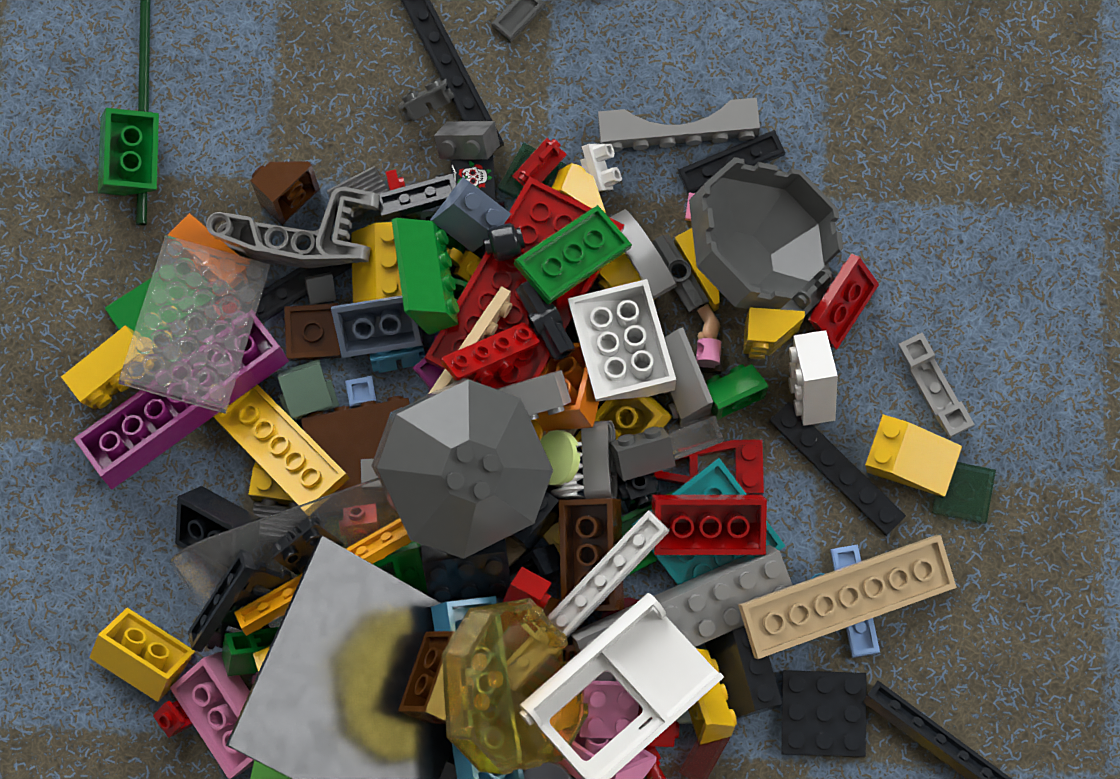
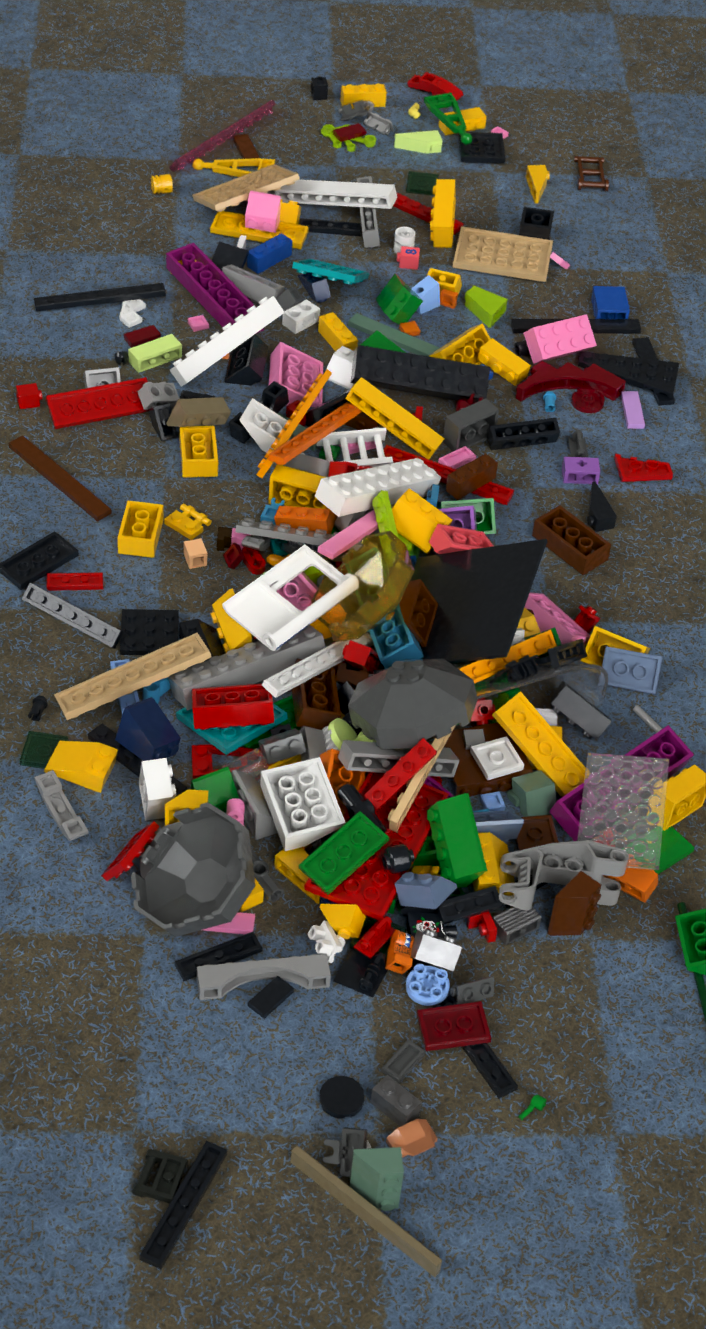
camera: 170 degrees right, 30 degrees down
(112, 522) = (647, 719): none -> light grey bar
(128, 612) = (632, 669): none -> sand blue tile
(348, 433) = (497, 758): none -> white plate
(455, 49) = (453, 1026): none -> dark red tile
(480, 101) = (427, 985): none -> light blue tile
(510, 143) = (400, 952): none -> orange leg
(561, 125) = (362, 972): none -> black hinge
(645, 256) = (294, 881): light grey slope -> none
(670, 102) = (270, 997): none -> black tile
(822, 492) = (147, 731): none -> dark blue slope
(977, 564) = (39, 704): none -> black pin

